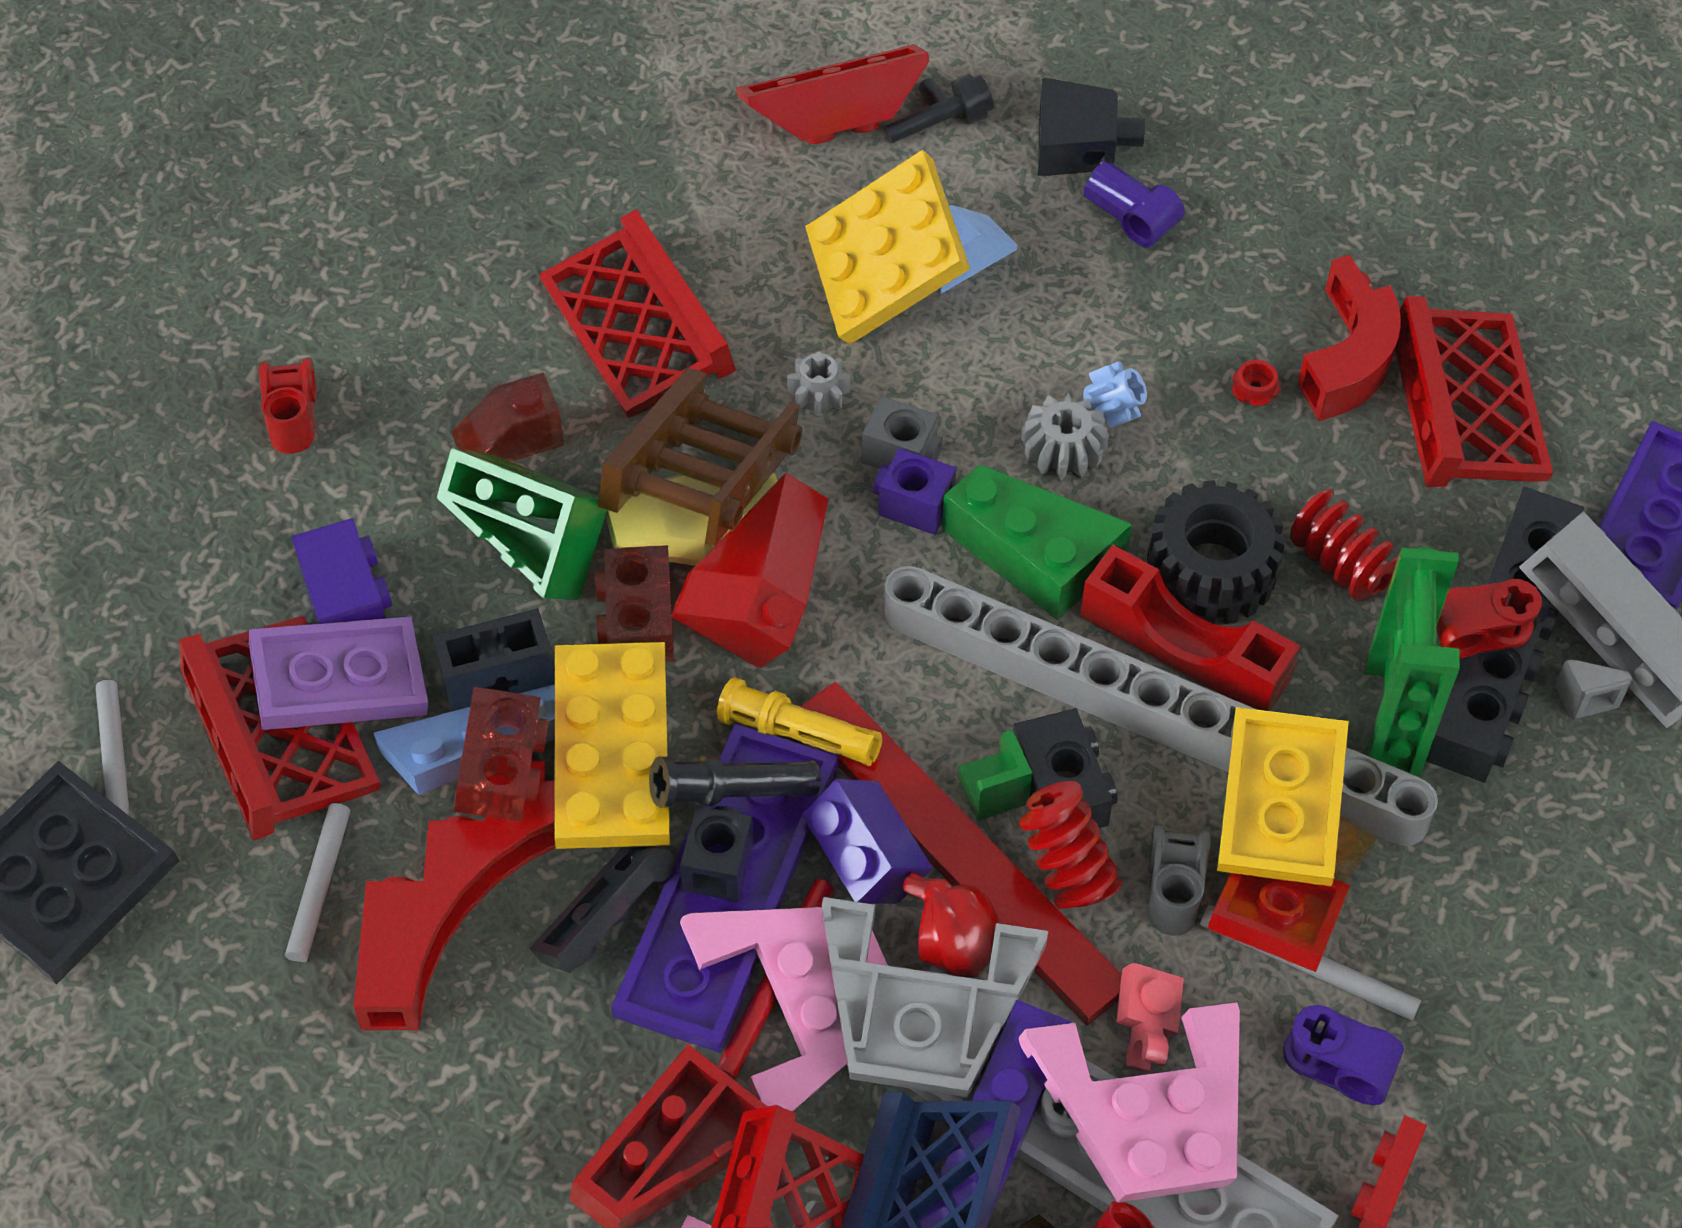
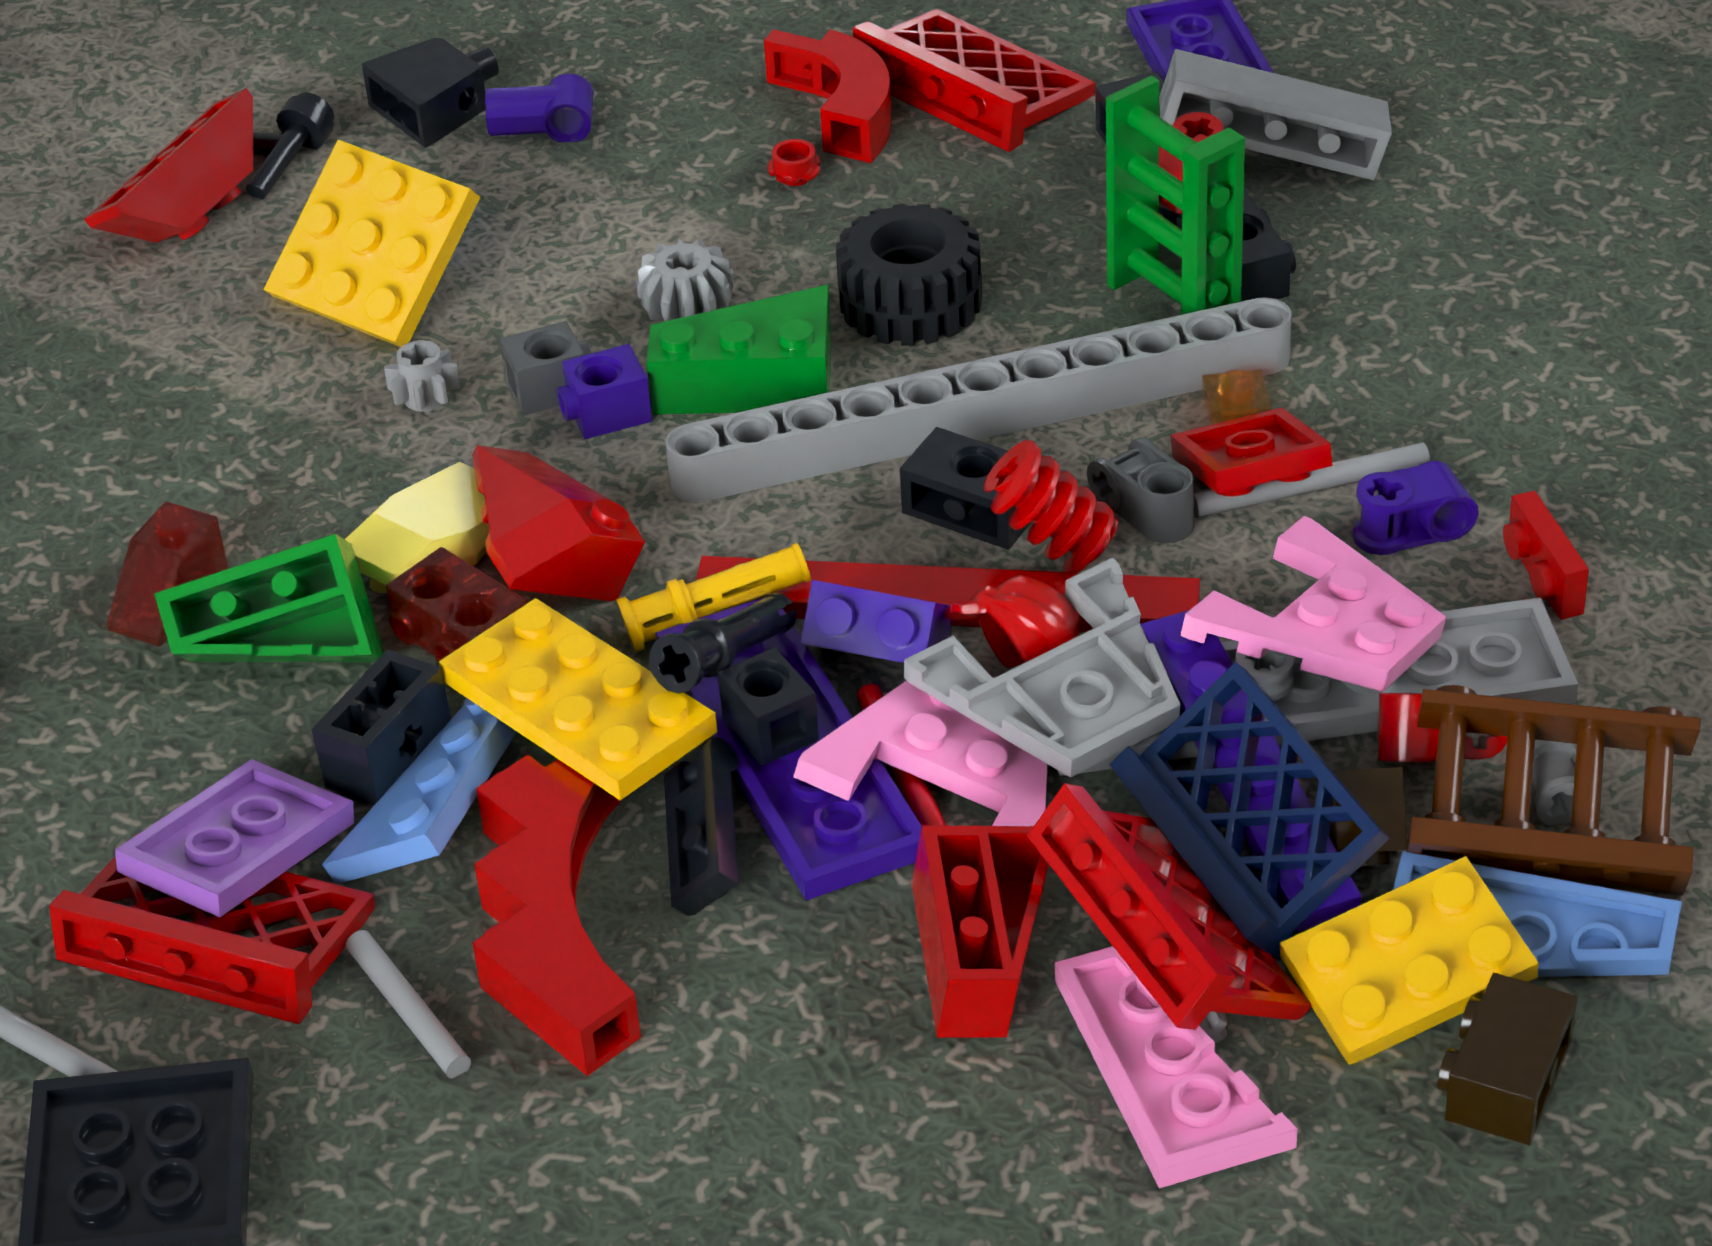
camera: 40 degrees left, 15 degrees down
(339, 574) = (137, 774): dark purple brick -> none
(493, 753) = (492, 757): clear red brick -> none
(665, 286) = (202, 400): red fence -> none
(671, 424) = (395, 466): reddish brown fence -> none
(997, 781) = (927, 521): green panel -> none
(1116, 393) = (692, 223): light blue gear -> none
(1136, 606) = (886, 342): red arch -> none
(1152, 1009) = (1237, 576): coral plate -> none
(1283, 796) = (1174, 366): yellow plate -> none
(1342, 548) = (1011, 209): red piece -> none
(1591, 688) = (1294, 182): light grey slope -> none

